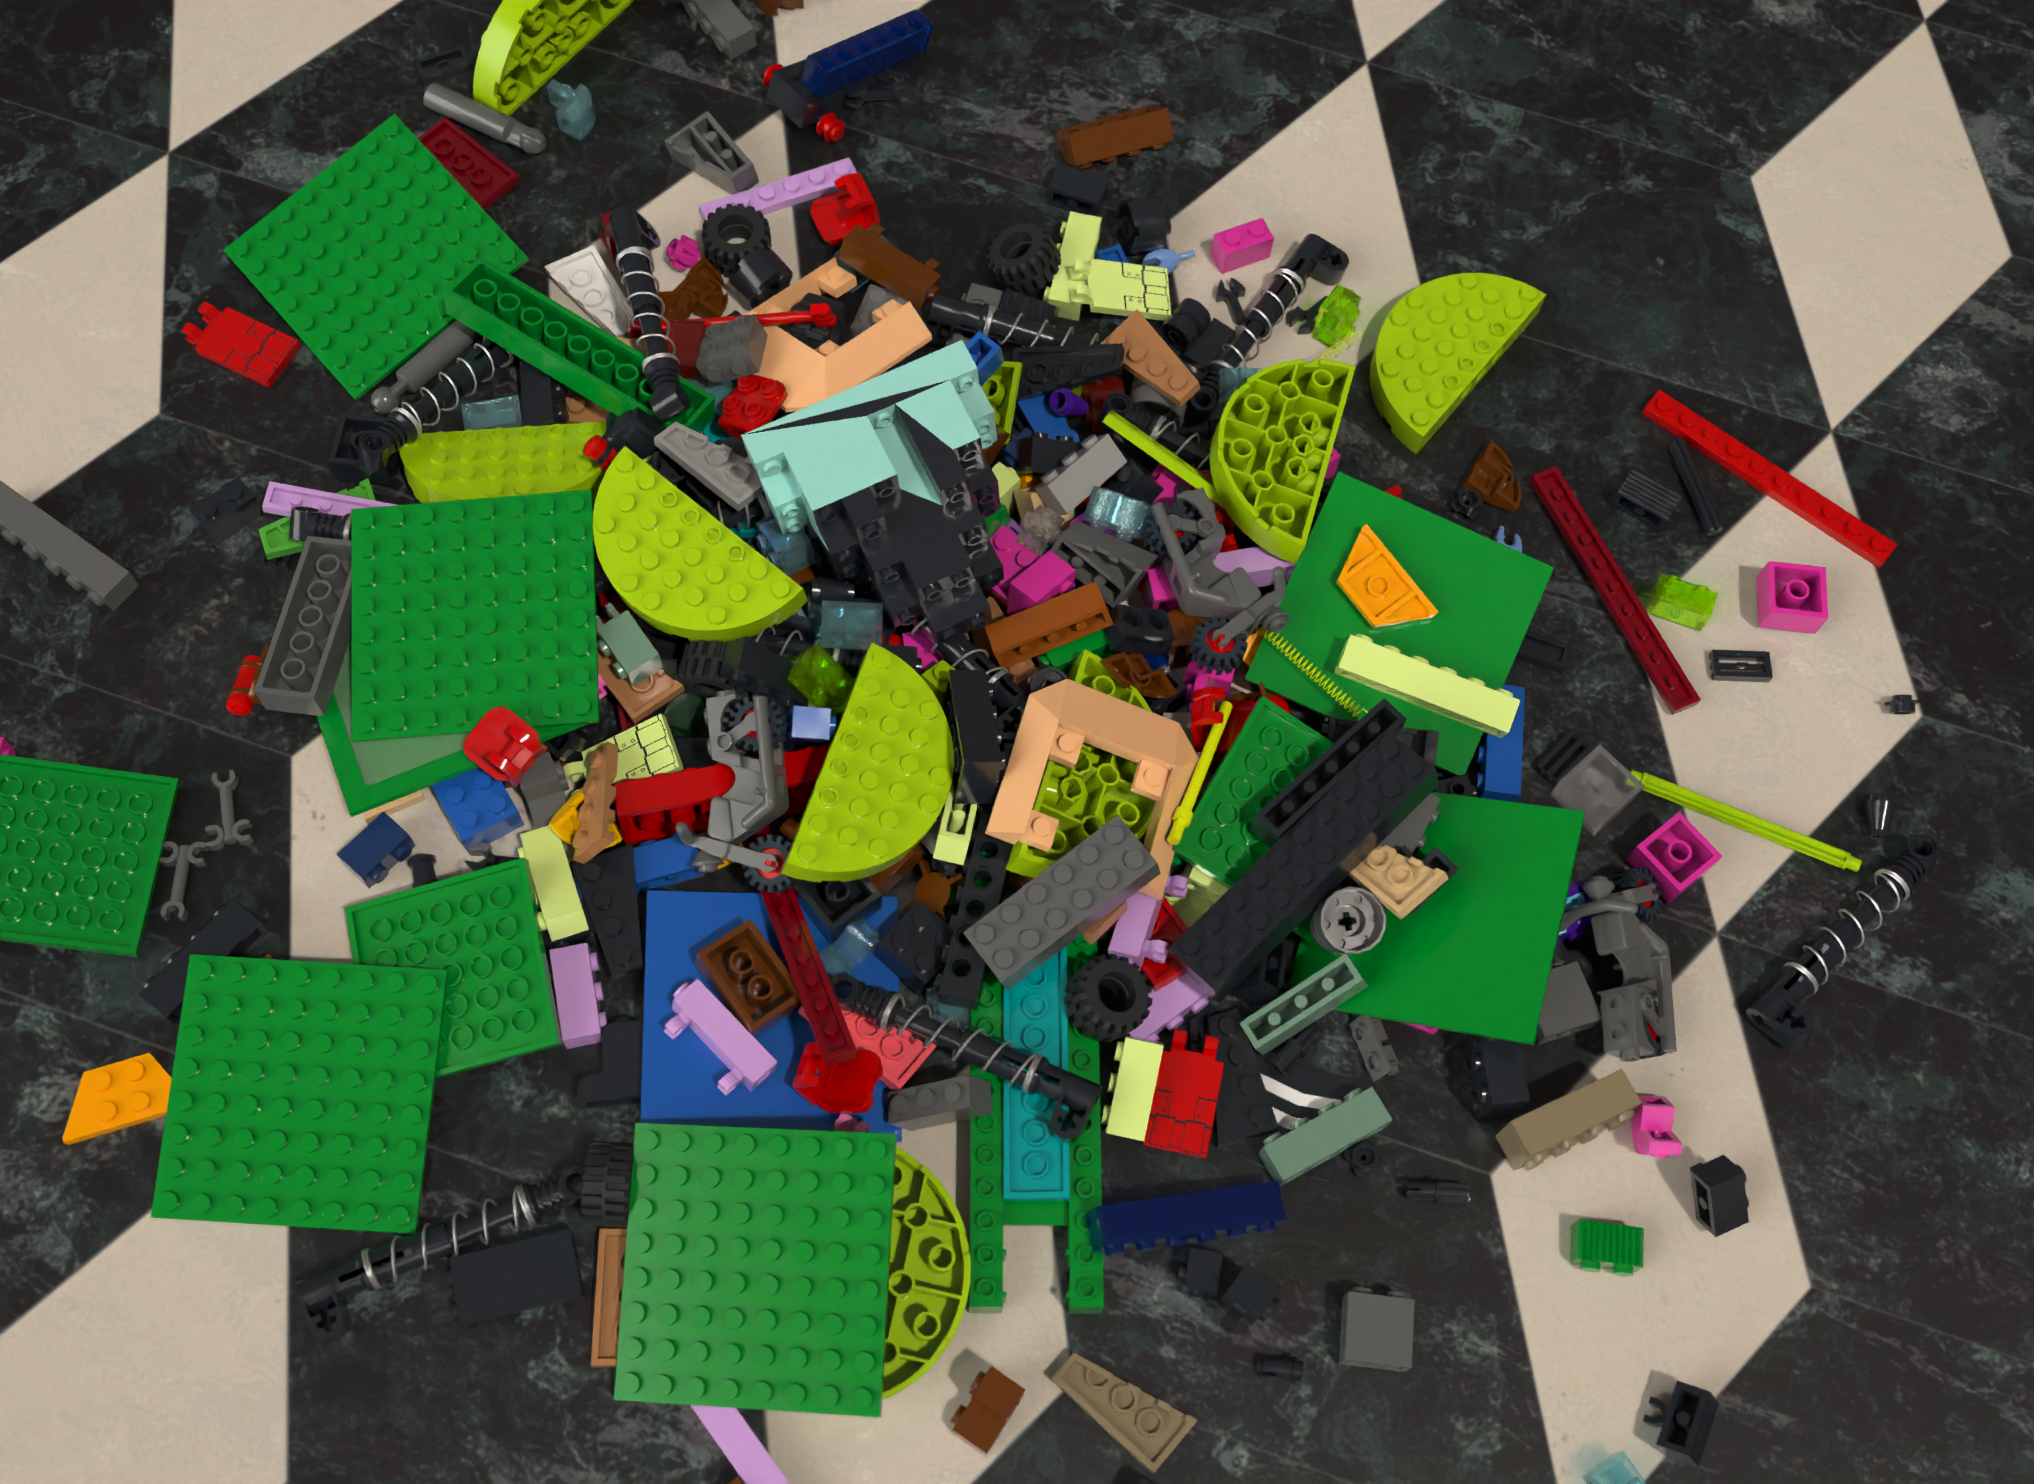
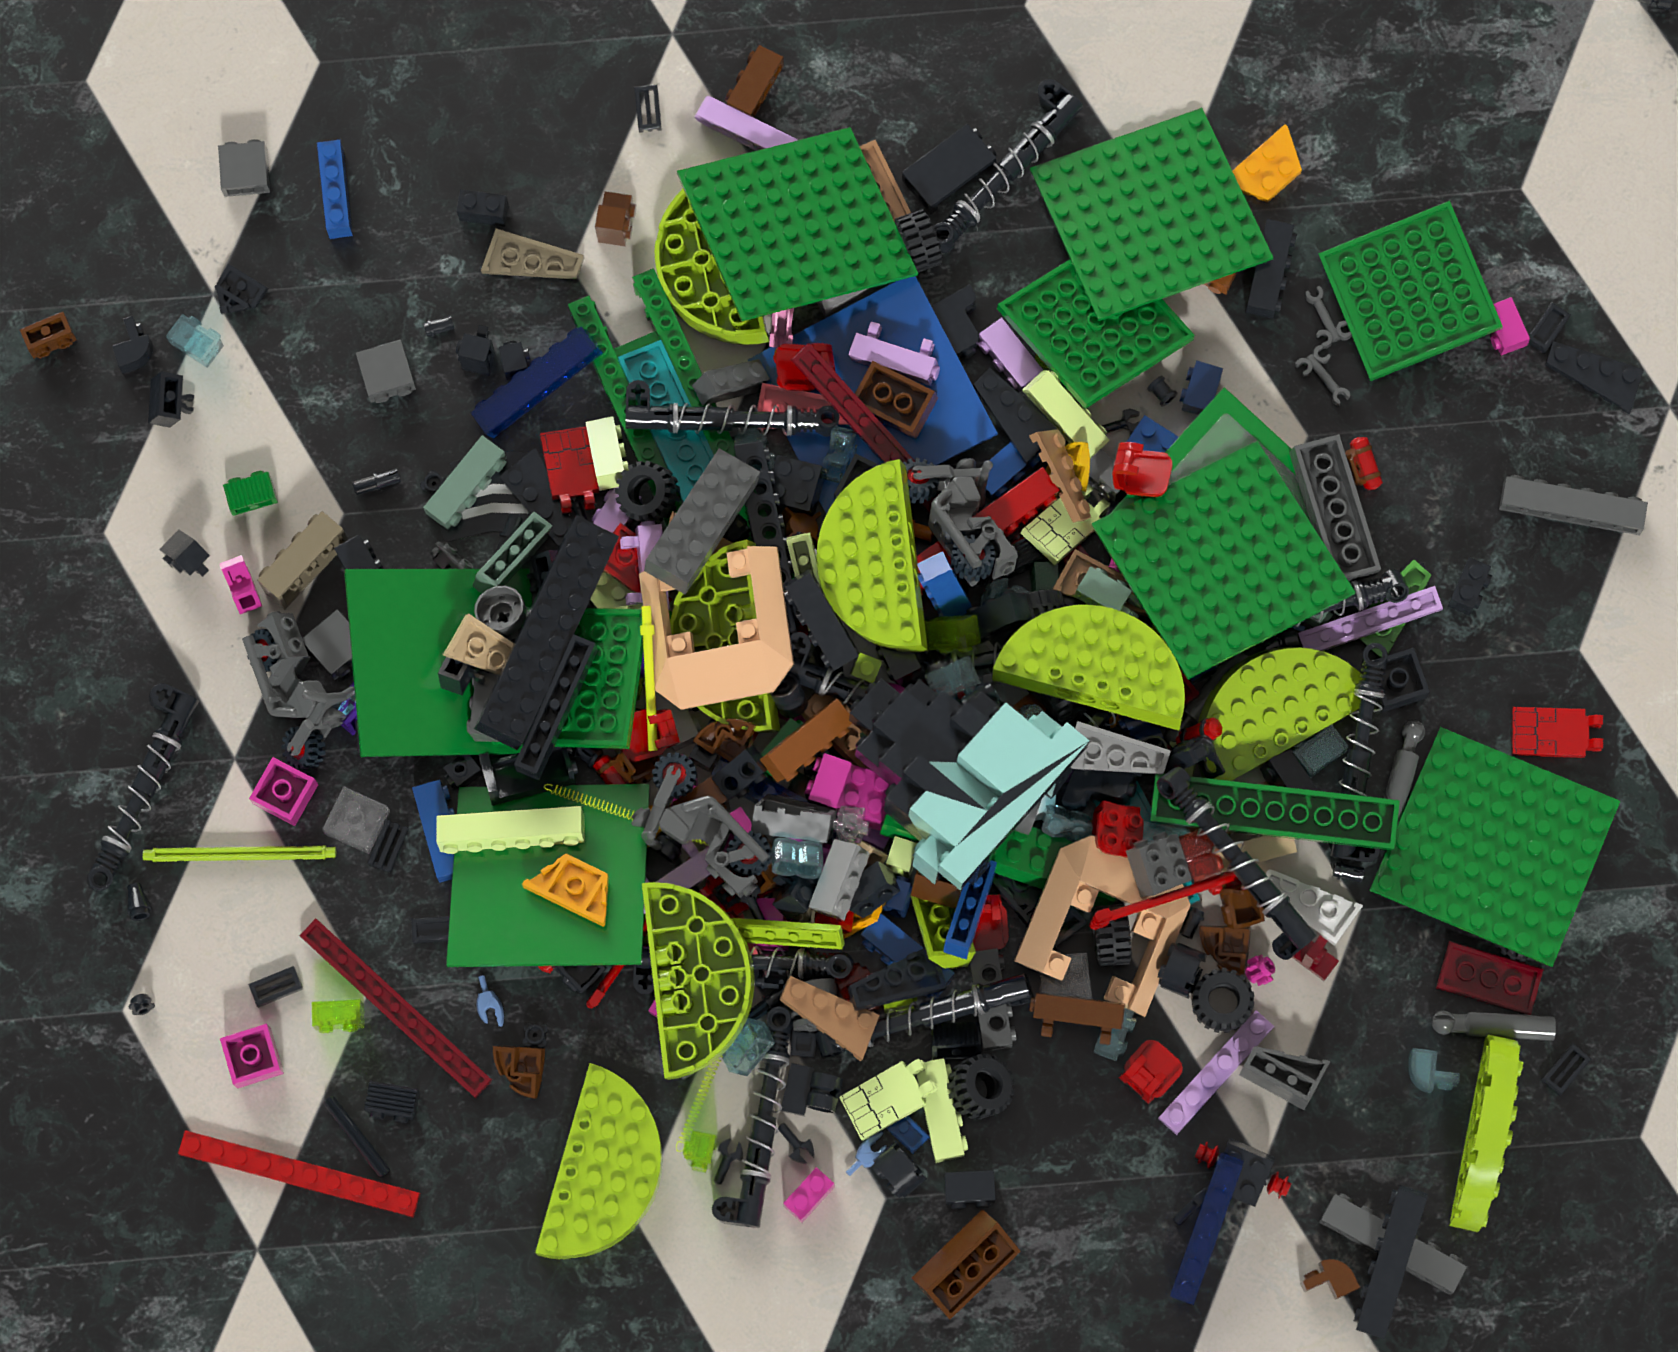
camera: 165 degrees right, 10 degrees up
(1067, 403) = (883, 956): dark purple cone -> none

